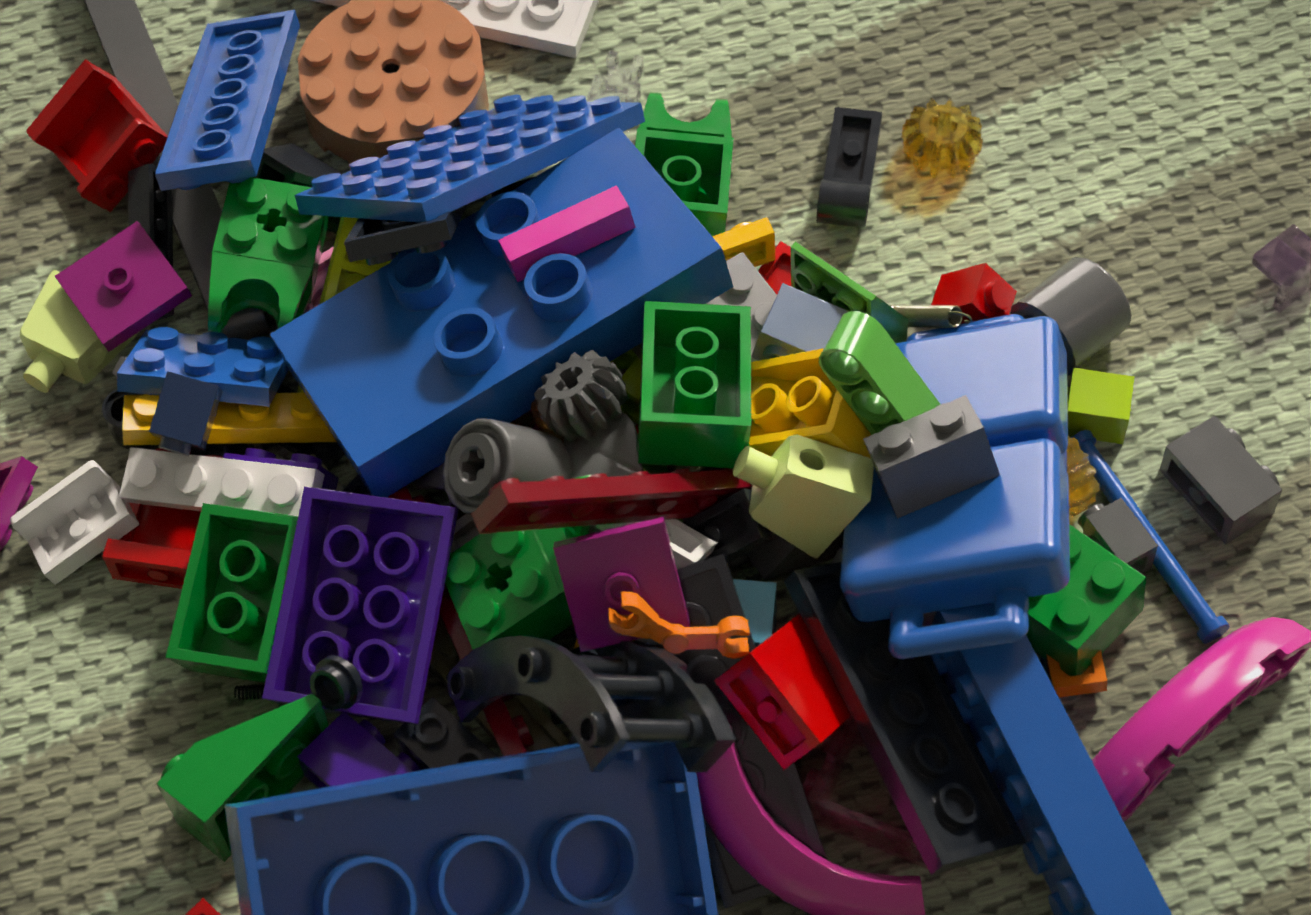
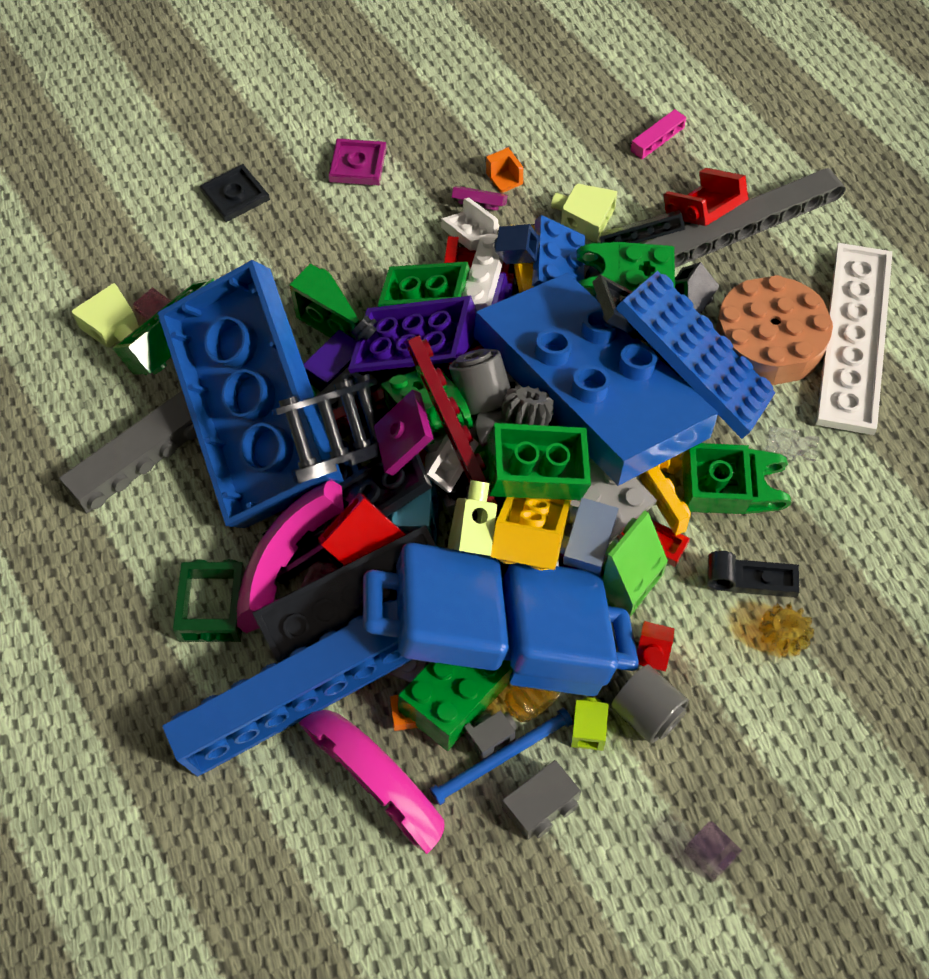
camera: 85 degrees right, 0 degrees up
(123, 286) = (605, 217): magenta plate -> none
(228, 102) = (734, 245): blue plate -> none
(568, 231) = (629, 386): dark pink piece -> none
(675, 637) = (381, 440): orange piece -> none
(873, 373) = (529, 547): bright green beam -> none
(932, 315) = (638, 616): olive piece -> none
(932, 456) = (485, 578): dark grey brick -> none

